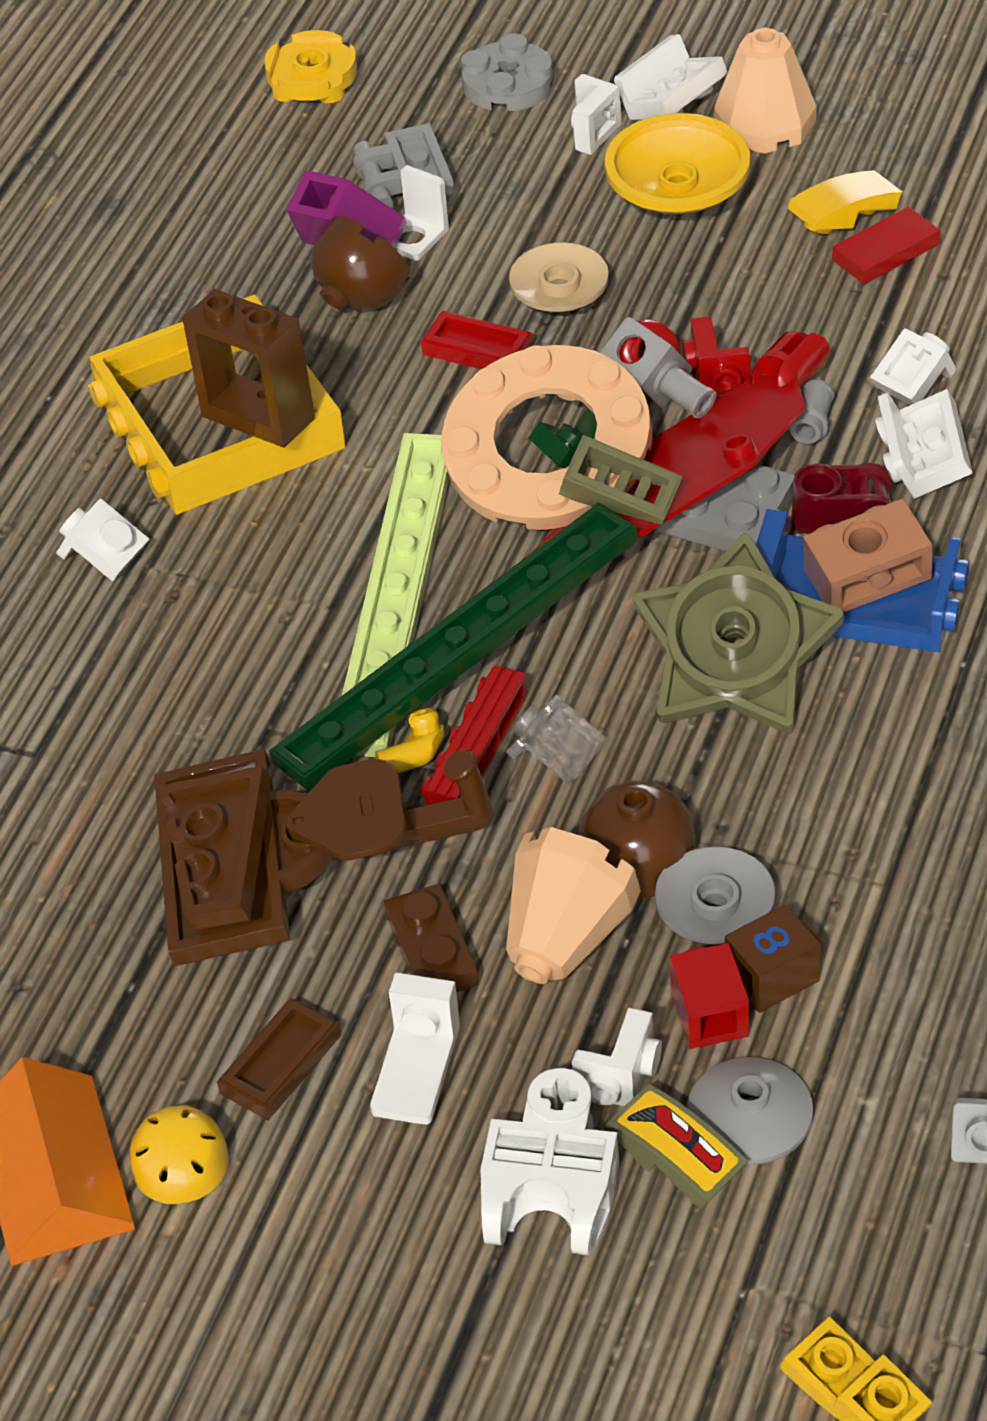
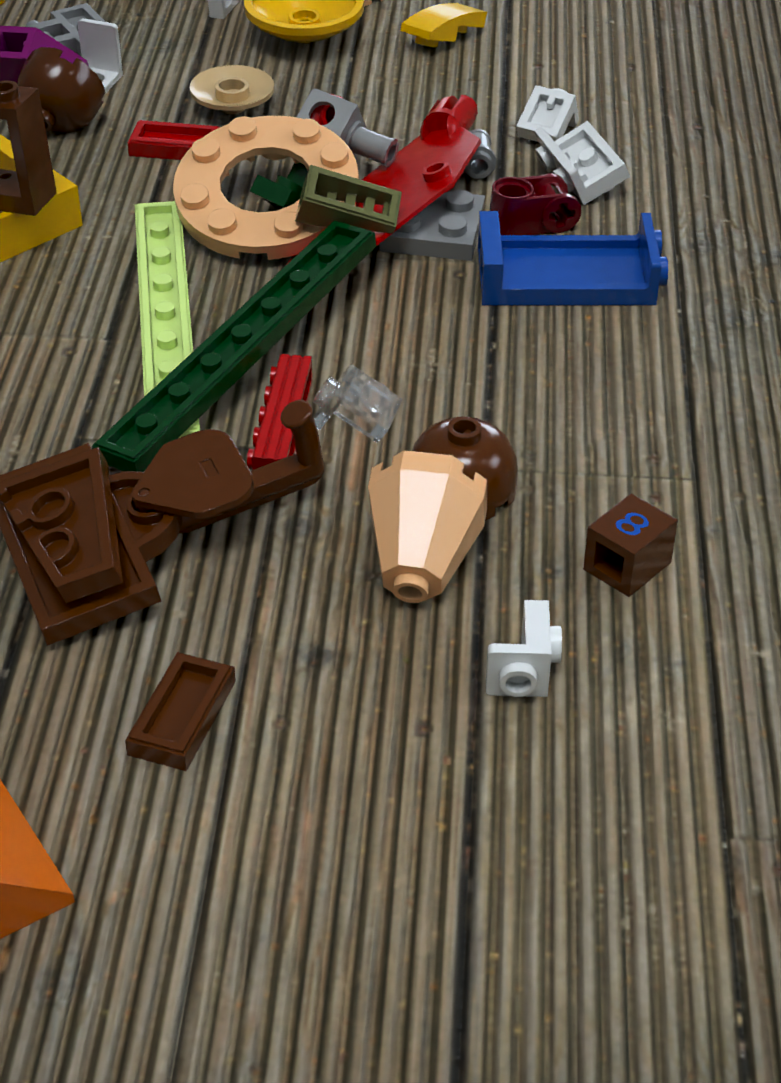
camera: 20 degrees left, 5 degrees down
(176, 1147) = (103, 804): yellow helmet -> none
(419, 1048) = (323, 673): white bracket -> none
(420, 744) = (233, 417): yellow arm -> none
(430, 937) = (299, 586): reddish brown plate -> none
(550, 1163) = (497, 755): white piece -> none
(678, 1142) = (595, 708): slope -> none
(709, 995) = (586, 584): red brick -> none
(712, 878) = (554, 502): light grey dish -> none
(713, 367) = (398, 125): red bracket -> none
(727, 602) = (490, 306): olive plate -> none
(760, 1127) = (658, 679): light grey dish -> none
(868, 556) = (577, 235): nougat brick -> none
(886, 245) = (486, 48): red tile -> none

